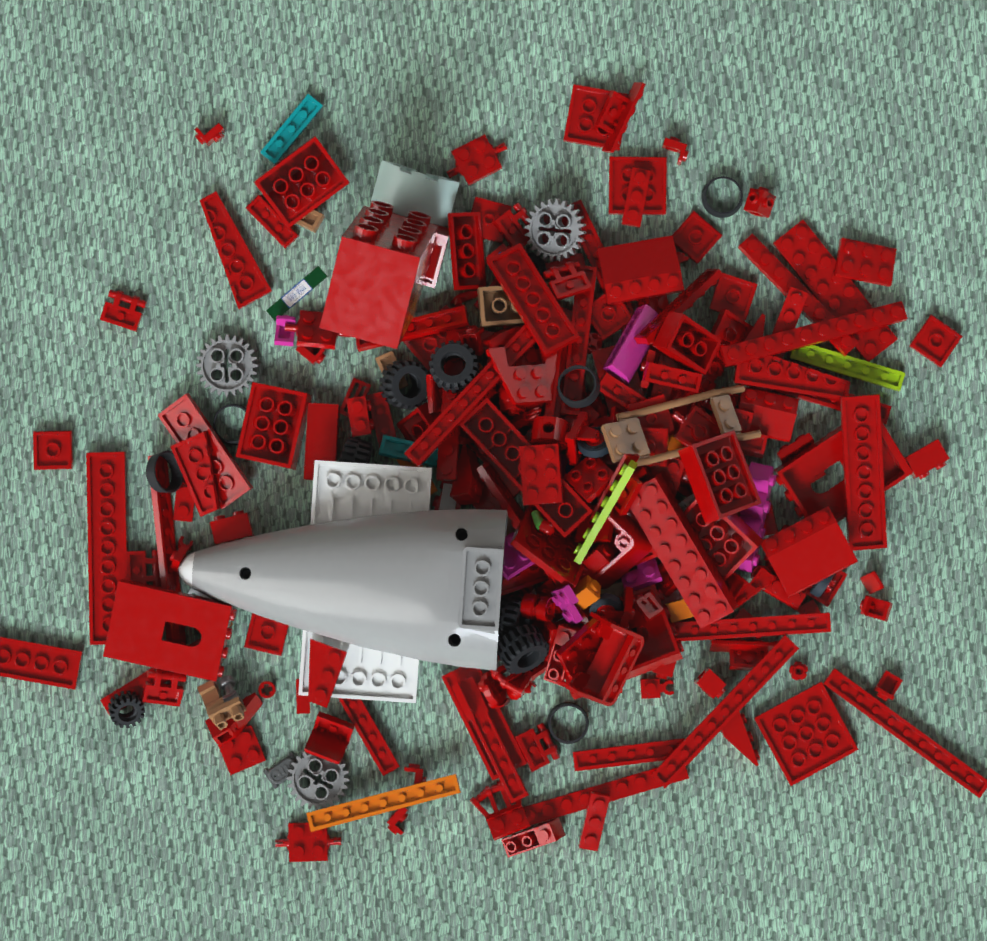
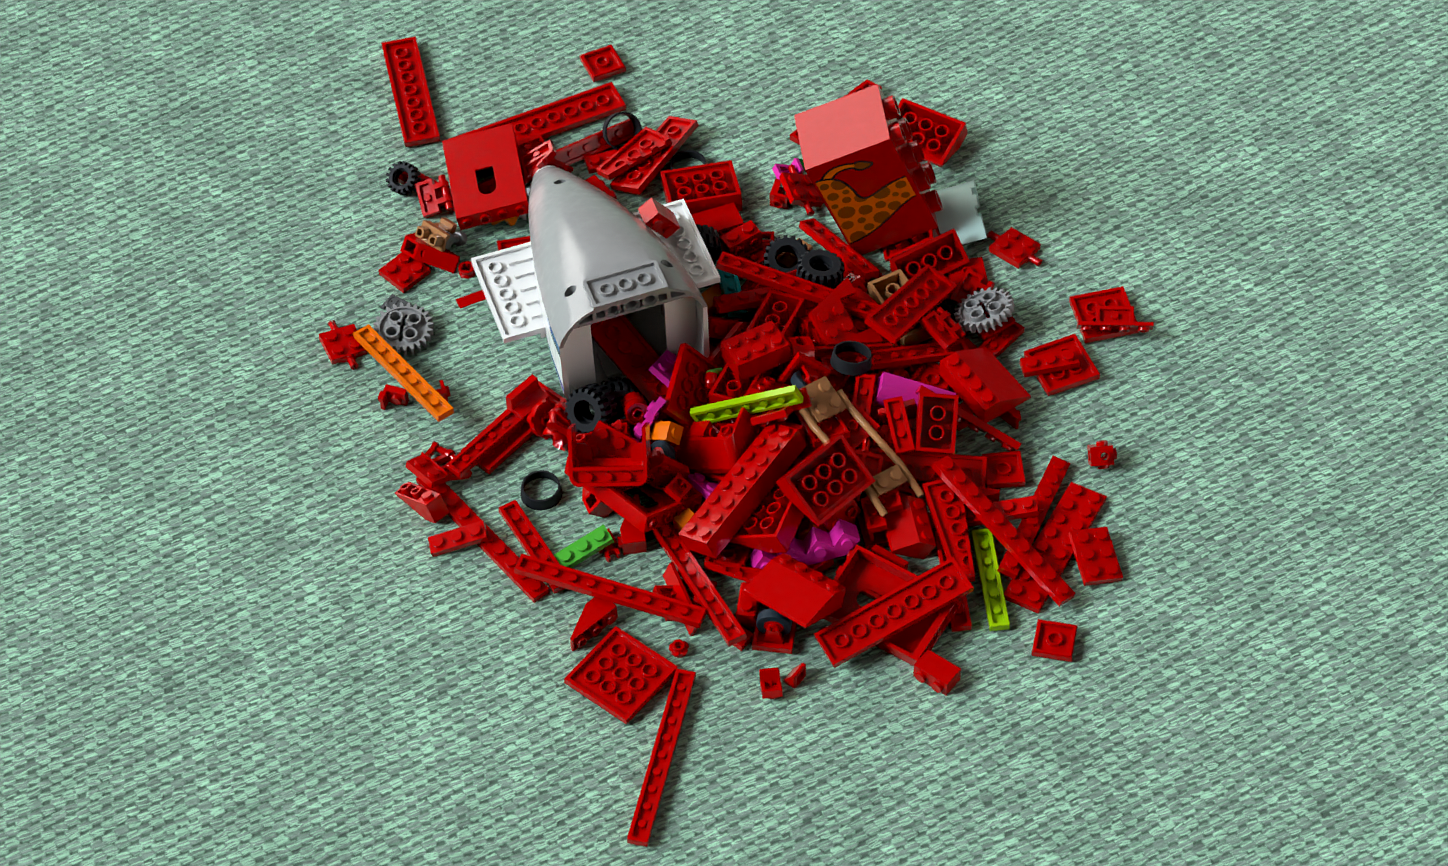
camera: 70 degrees right, 35 degrees down
(122, 316) = (740, 66): red plate -> none
(174, 573) = (537, 159): none -> red wing
(209, 366) = (736, 143): light grey gear -> none
(214, 134) = (926, 68): red bracket -> none
(291, 129) = (973, 119): teal plate -> none
(324, 670) = (501, 265): red wing -> none
(329, 738) = (444, 324): red bracket -> none
(346, 499) = (659, 218): none -> red brick
(370, 735) = (464, 348): red plate -> none
(532, 748) = (503, 468): red plate -> none
(655, 712) = (584, 547): none -> bright green plate
(674, 144) = (1111, 383): red bracket -> none
(696, 237) = (1041, 425): red tile -> none
(710, 683) = (632, 570): red brick -> none
(713, 212) = (1083, 442): black tyre -> none
(887, 686) = (699, 722): red bracket -> none

